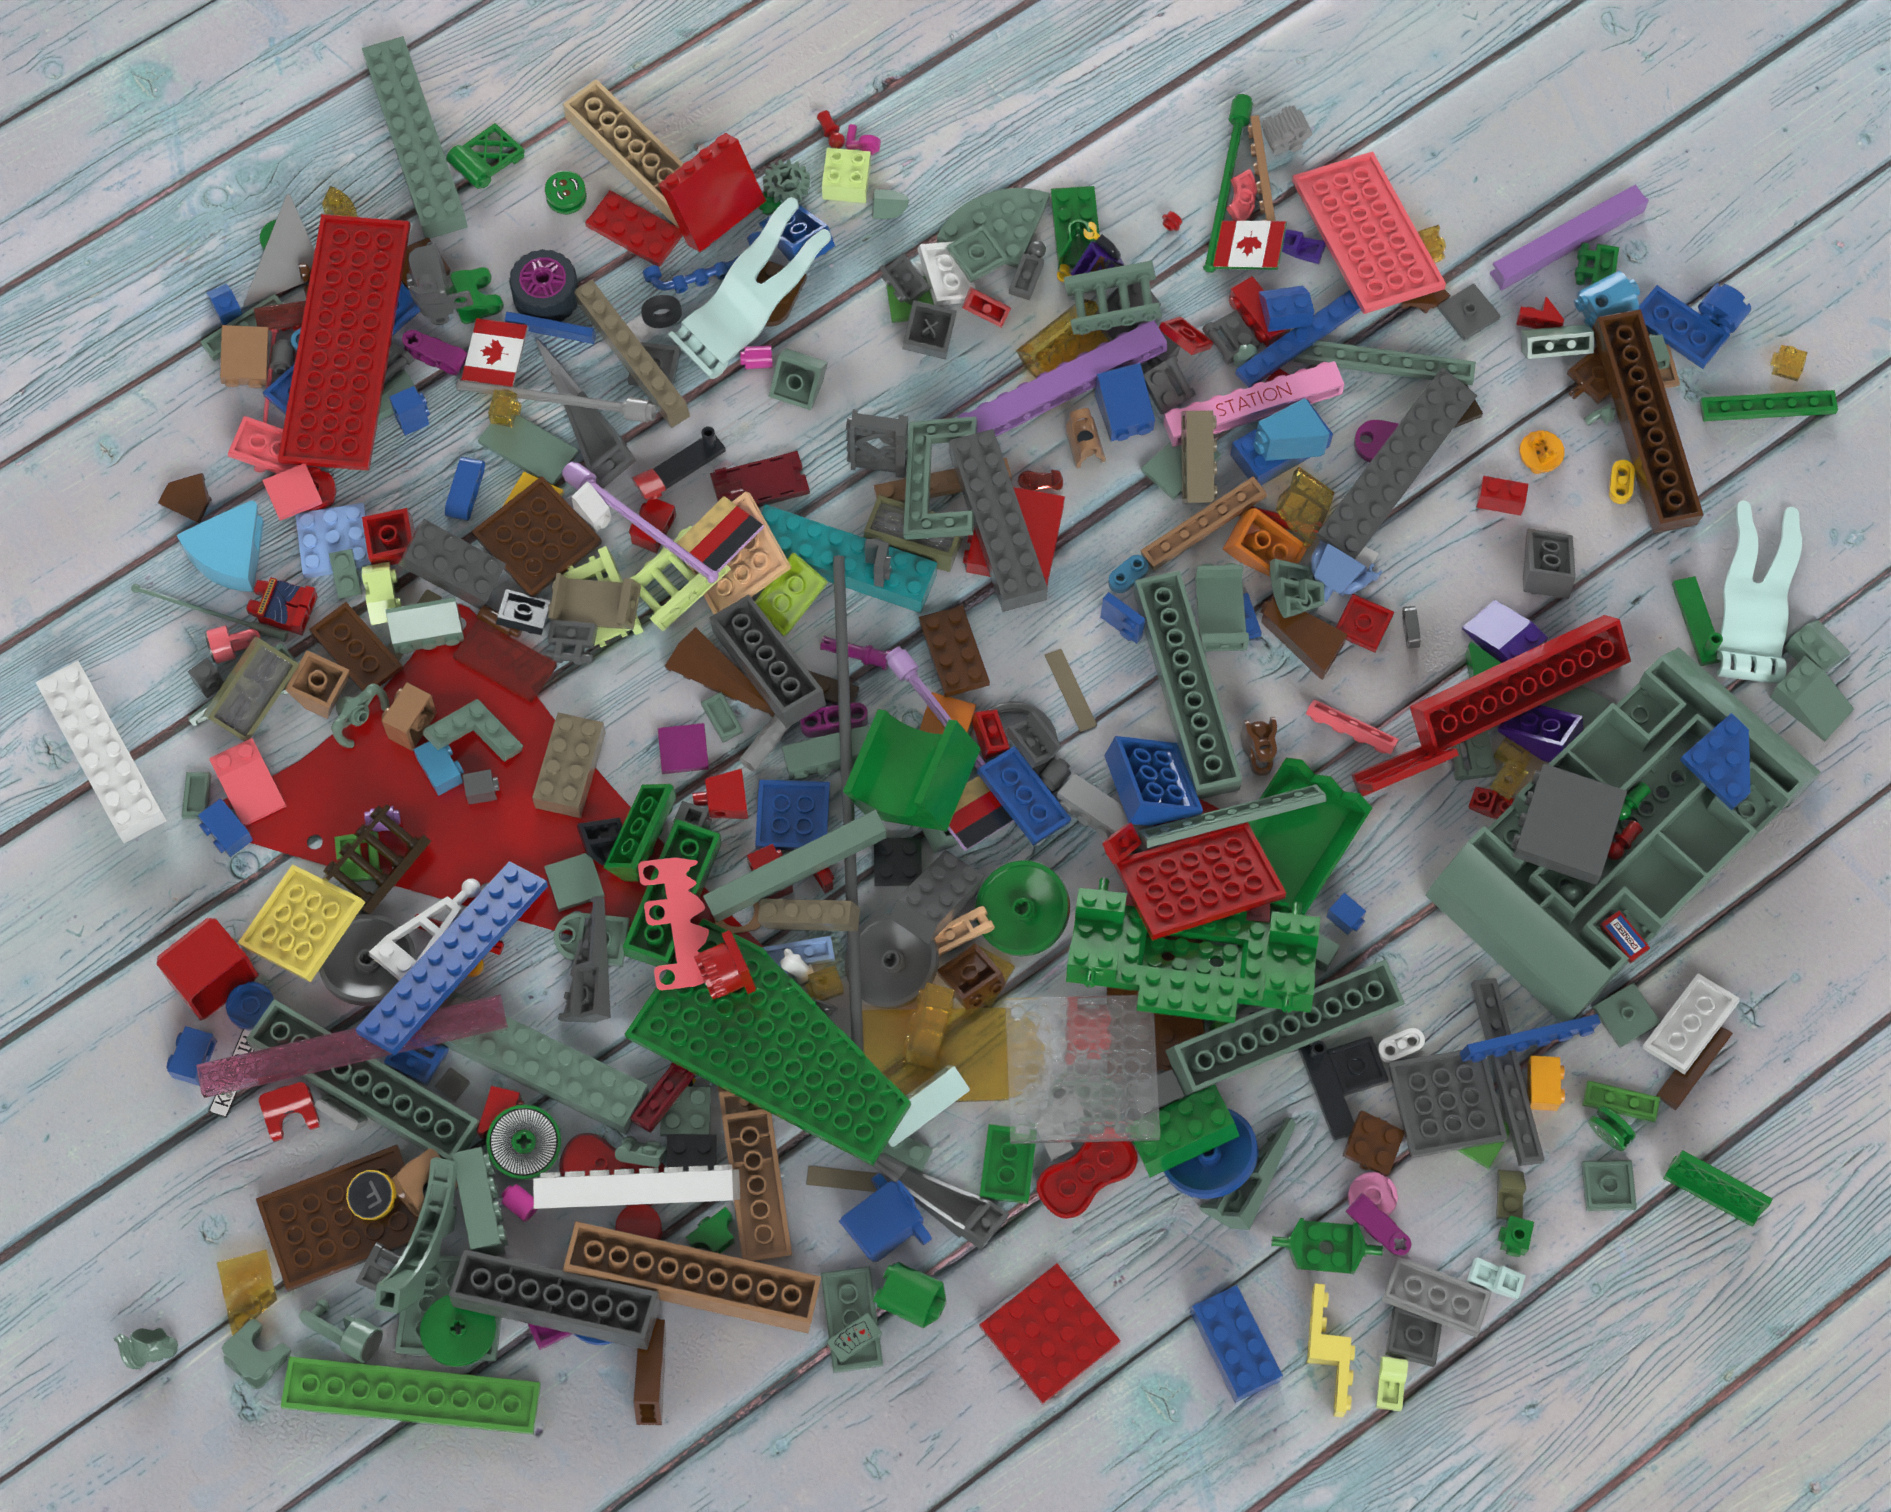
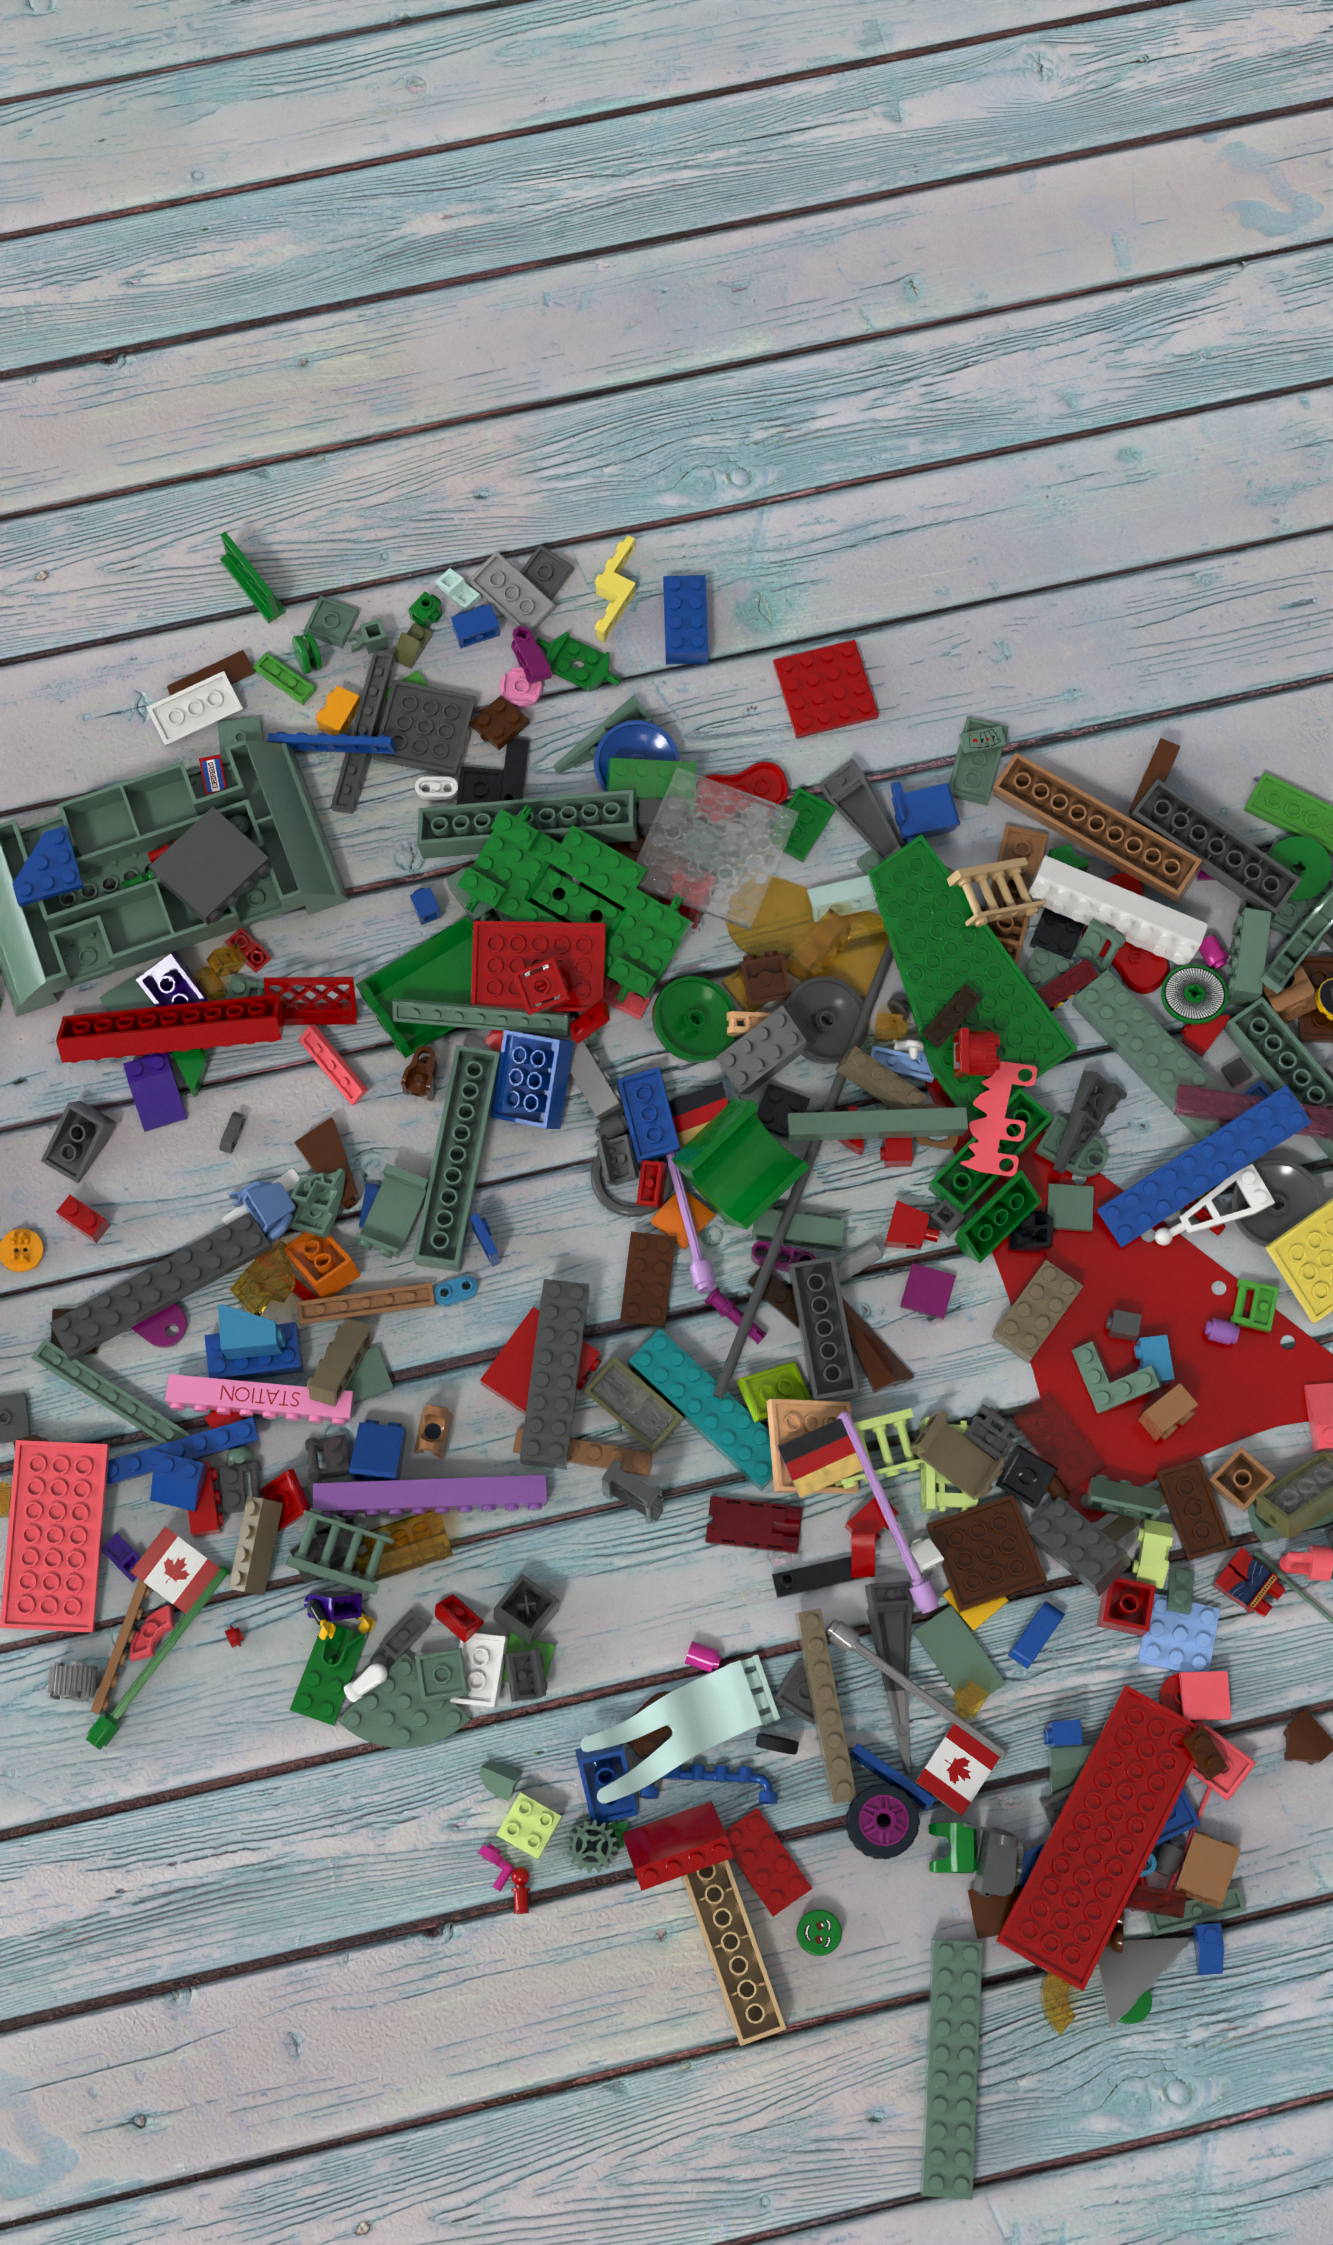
camera: 155 degrees left, 5 degrees up
(227, 547) = (1286, 1660): medium azure piece -> none
(277, 438) = (1204, 1753): none -> reddish brown plate
(356, 712) = (1216, 1441): sand green piece -> none
(399, 863) = (1238, 1269): dark brown fence -> none
(434, 351) = (1015, 1797): magenta piece -> none
(472, 165) = (903, 2007): green piece -> none
(722, 717) = (881, 1307): sand green tile -> none
(764, 999) = (951, 1016): none -> dark brown plate
(791, 813) = (856, 1187): blue plate -> none
(792, 1150) = (997, 872): none -> tan fence
(797, 378) = (672, 1617): sand green slope -> none
(878, 554) = (684, 1360): dark grey bracket -> none
(911, 1295) = (925, 750): green cylinder -> none
(917, 520) = (586, 1493): sand green plate -> none
(1037, 229) = (369, 1679): none -> white piece
(1040, 480) = (496, 1418): clear red piece -> none
(1070, 690) = (559, 1206): dark tan sticker -> none
(1181, 844) = (542, 986): none -> red piece
(1191, 288) = (255, 1545): none -> dark tan brick
(1364, 622) = (271, 1154): red plate -> none
(1391, 1383) = (579, 549): yellowish green plate -> none
(1455, 1241) = (475, 626): none -> blue brick
(1556, 1175) = (372, 637): none -> sand green brick

